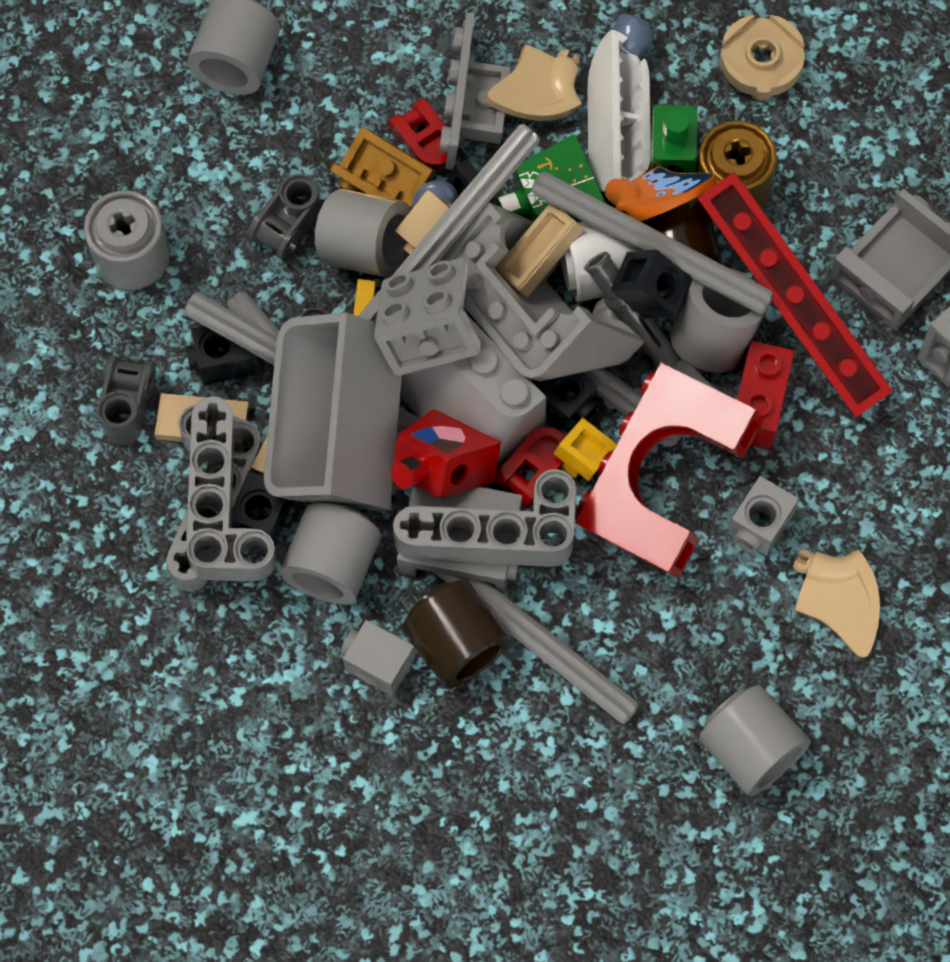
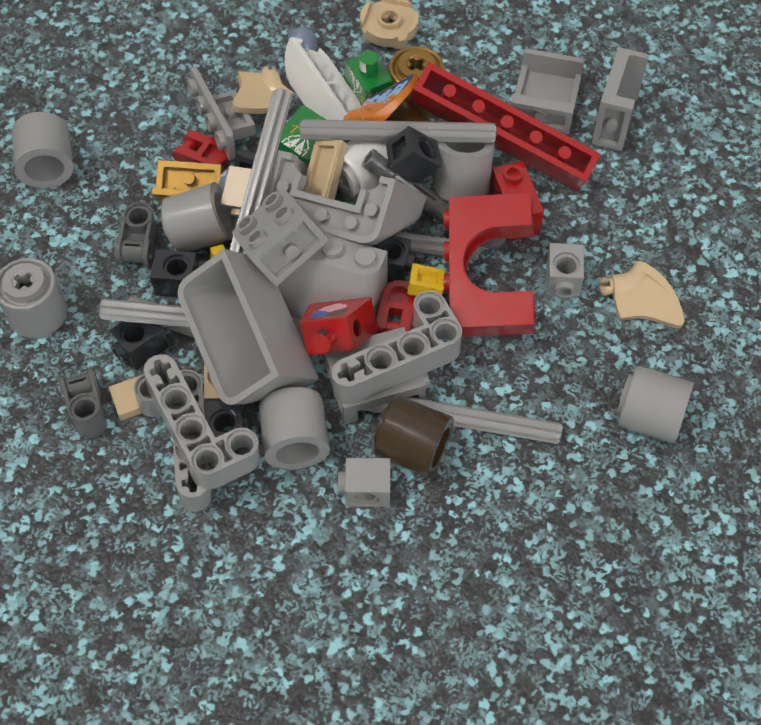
camera: 30 degrees left, 10 degrees down
(302, 272) = (165, 270): none -> black brick

